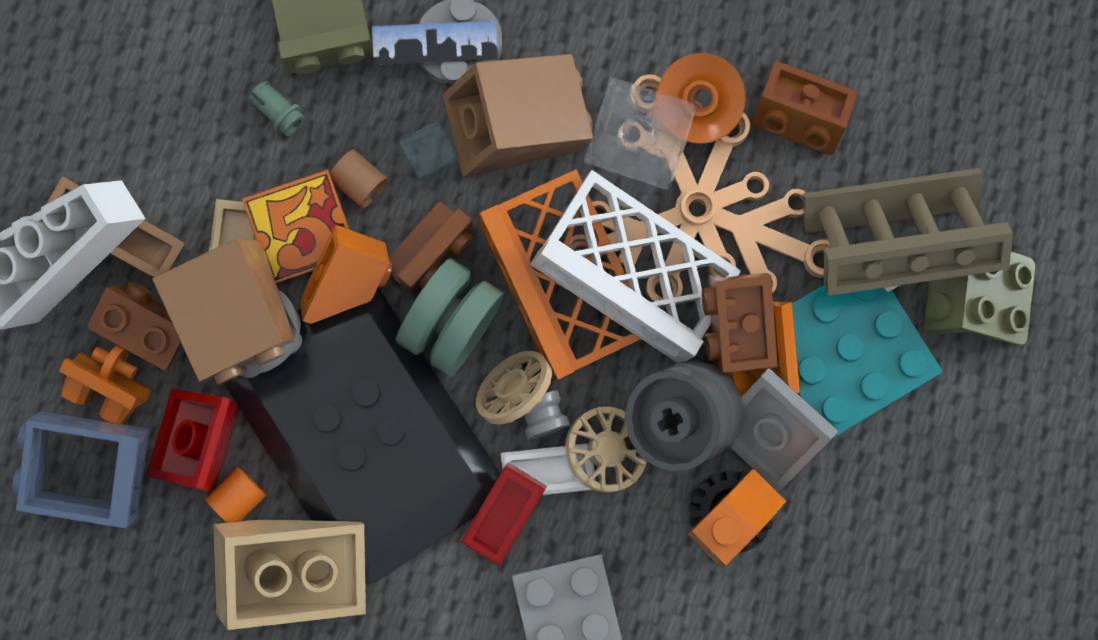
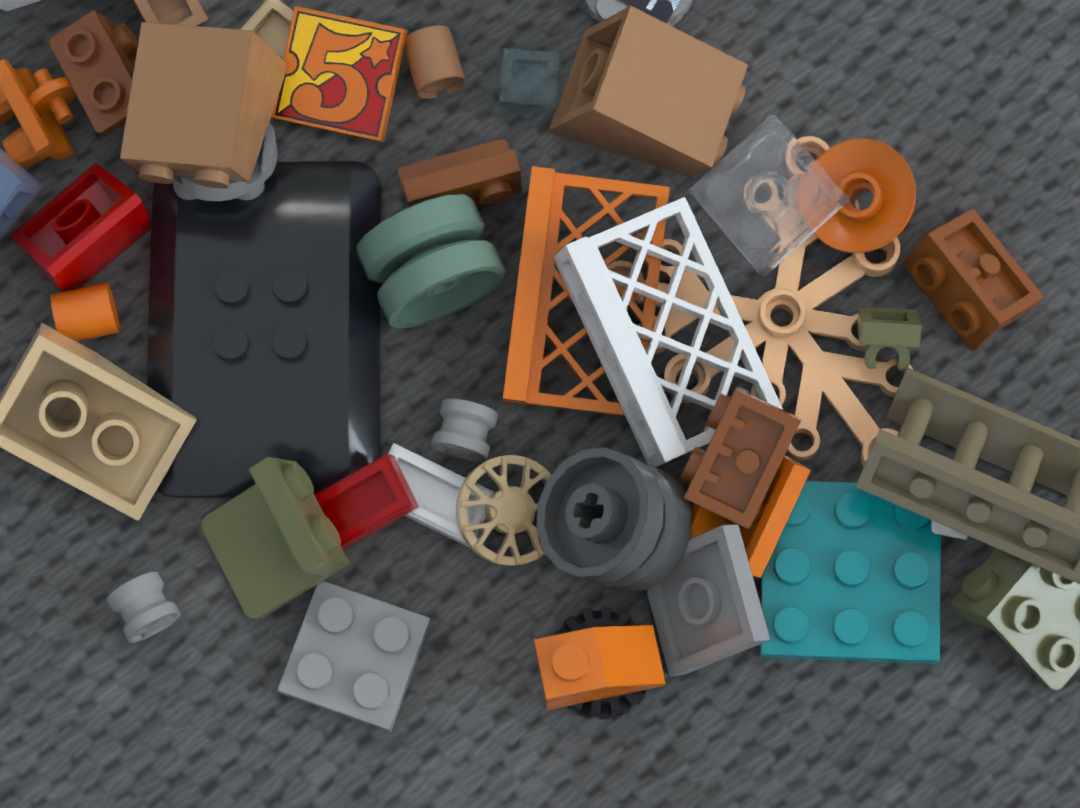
camera: 40 degrees right, 5 degrees down
(345, 275) = (352, 151): orange slope -> none
(466, 569) = (274, 538): none -> olive bracket
(513, 387) = (451, 379): tan wheel -> none
(775, 175) = (888, 328): none -> olive tile

